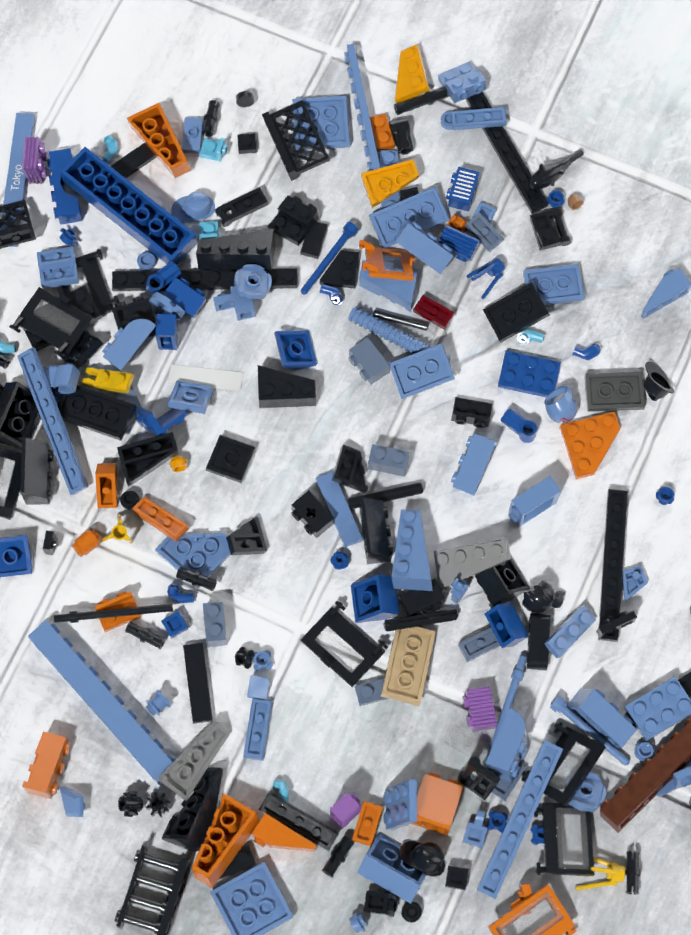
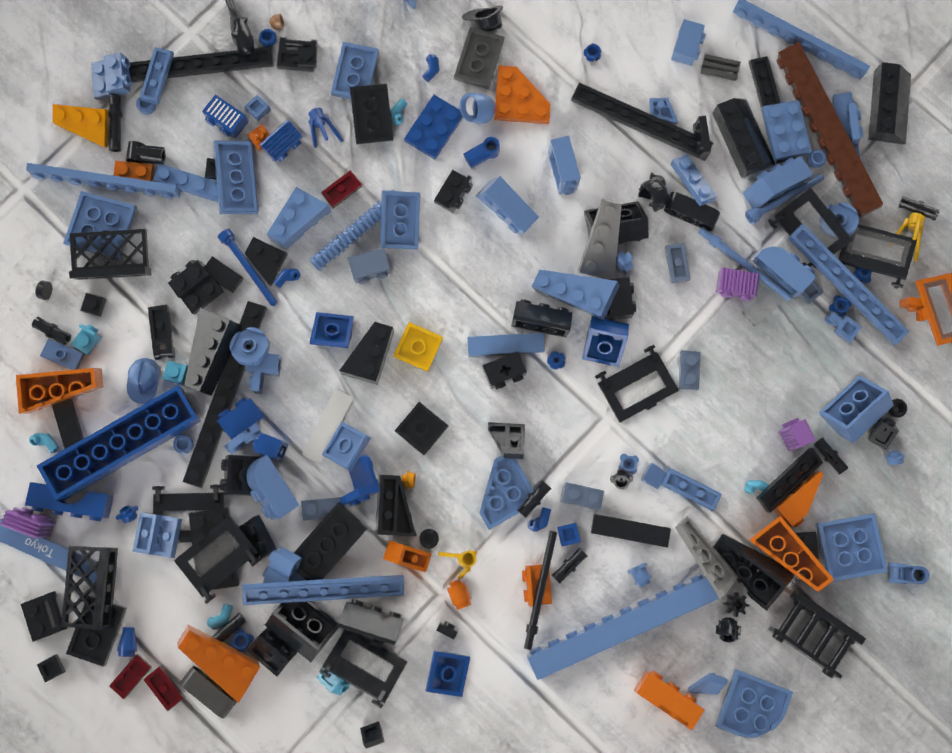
camera: 75 degrees left, 10 degrees up
(64, 851) = (752, 706): none -> medium blue plate
(109, 380) = (299, 520): yellow hinge -> none
(160, 519) = (459, 515): orange tile -> none
(163, 277) = (211, 432): blue piece -> none
(307, 430) = (418, 347): none -> yellow plate
(349, 469) = (471, 320): black wing -> none
(367, 823) = (816, 422): orange plate -> none
(387, 262) = (280, 210): orange piece -> none
(388, 180) = (190, 183): light orange wing -> none
(388, 460) = (476, 282): sand blue brick -> none
(388, 495) = (507, 299): black axle -> none
(400, 320) = (336, 224): black bar -> none
(400, 805) = (811, 382): medium blue plate -> none
(408, 665) = (677, 332): tan plate -> none
(420, 620) = (640, 306): black axle -> none
(423, 857) = (854, 381): black piece -> none
(424, 246) = (274, 172): medium blue wedge -> none
(437, 803) = (813, 352): orange slope -> none
(456, 878) = (880, 358): black plate -> none
(484, 232) = (277, 113): sand blue plate -> none
(484, 782) = (805, 305): black plate -> none
(506, 624) = (670, 232): blue brick -> none
(638, 669) = (743, 136): none -> black slope

